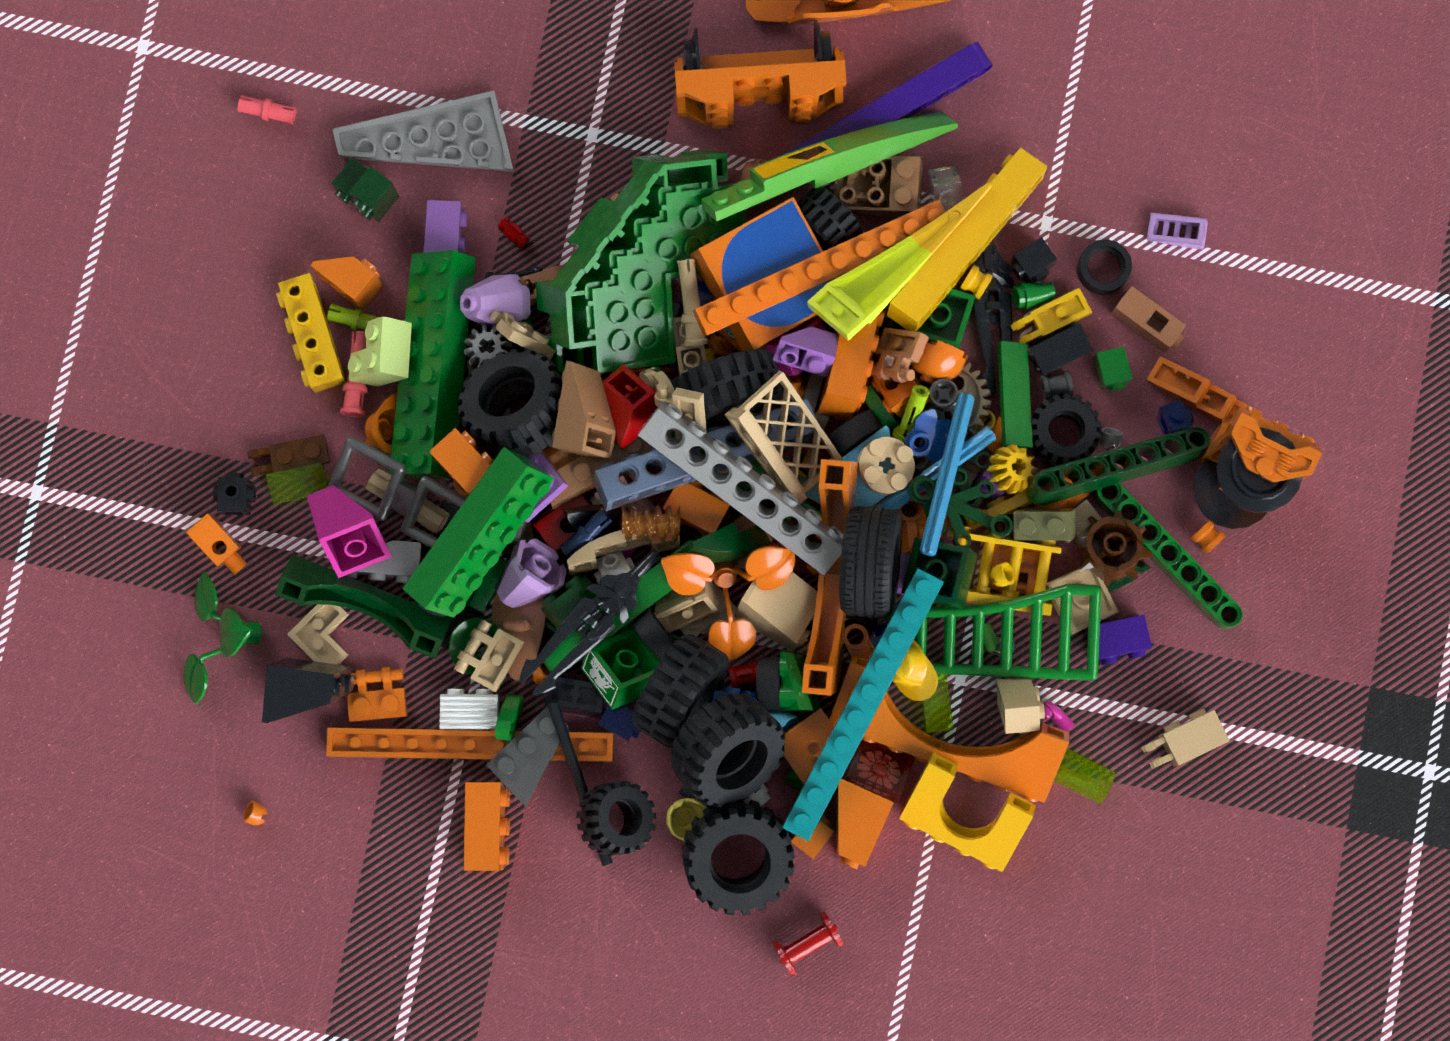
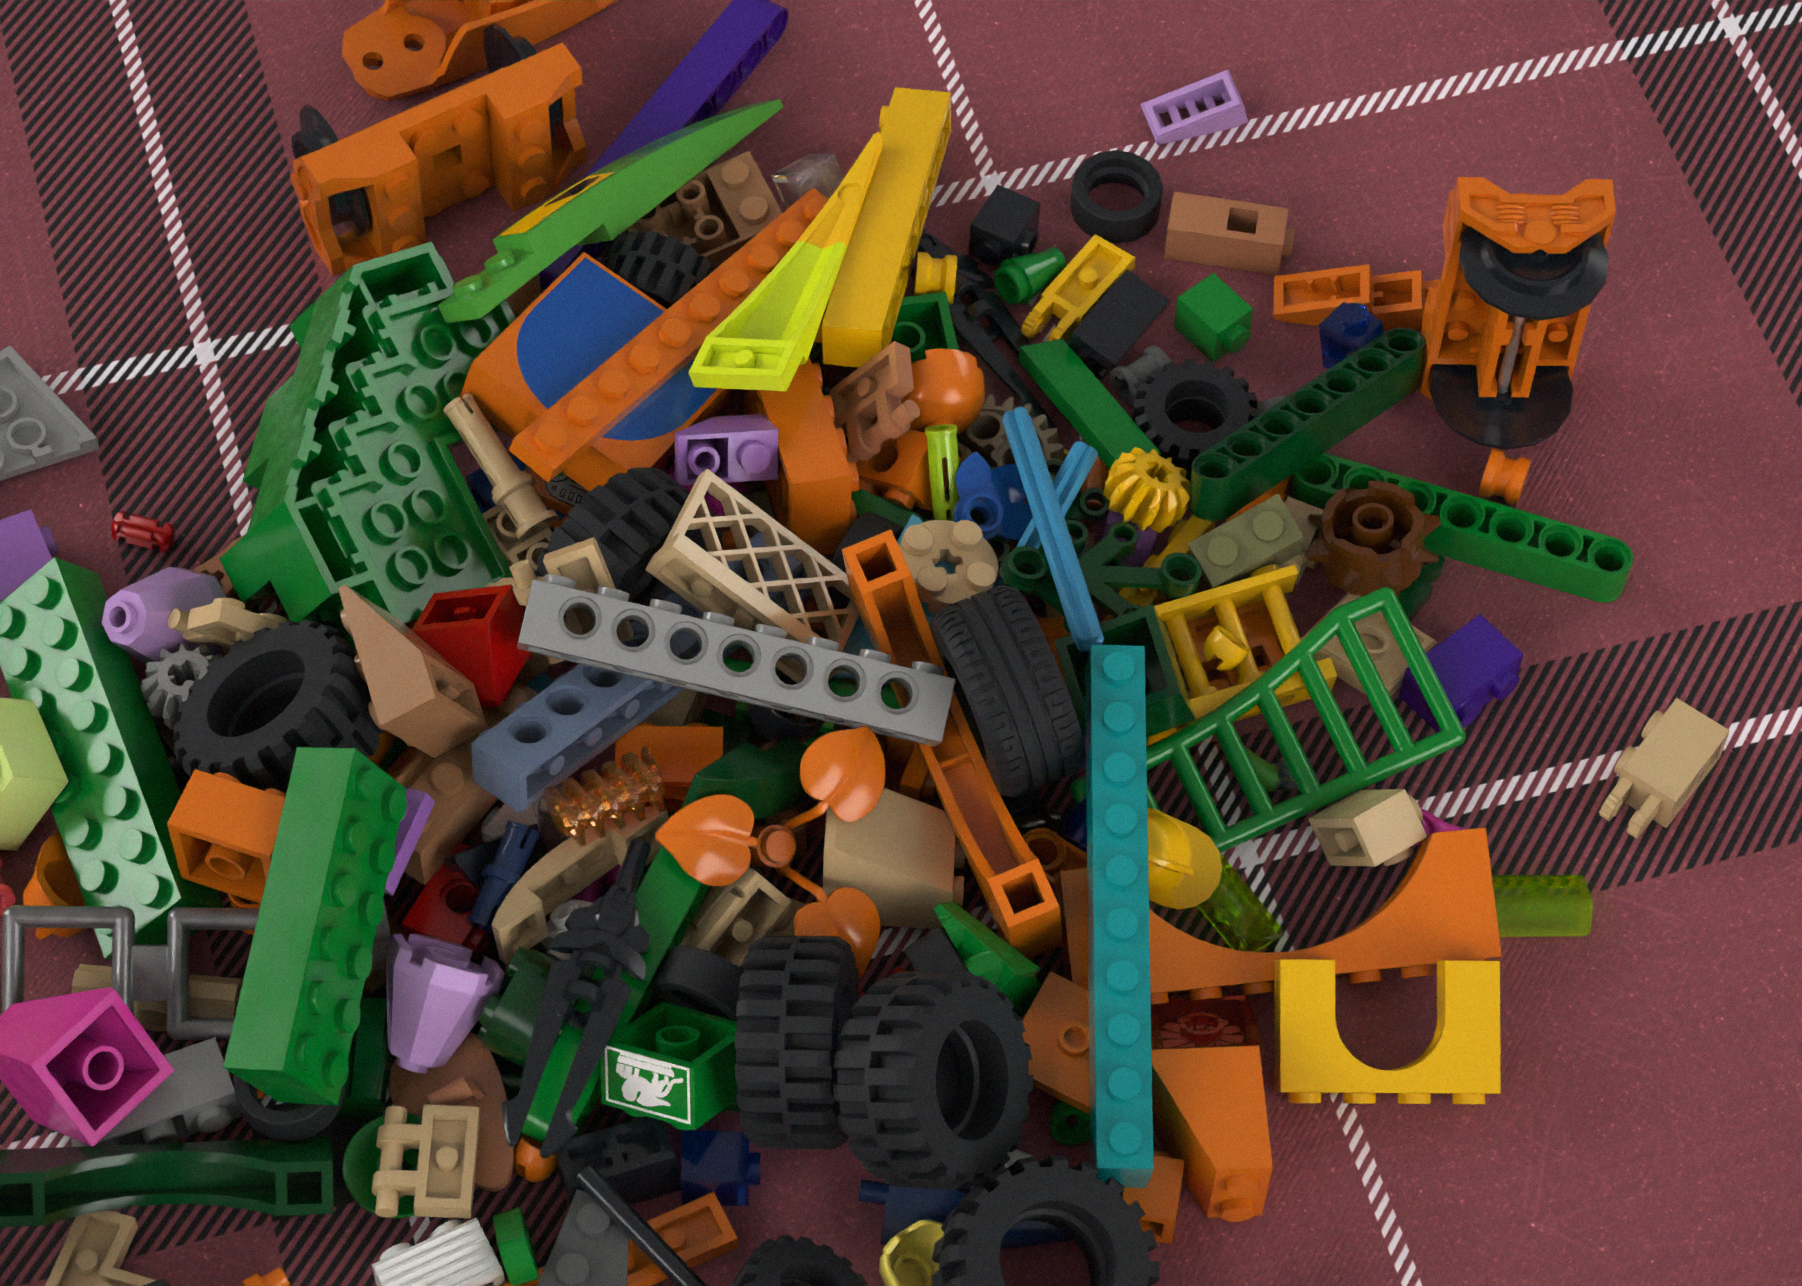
camera: 30 degrees left, 25 degrees down
(944, 390) = (980, 432): dark grey wheel -> none

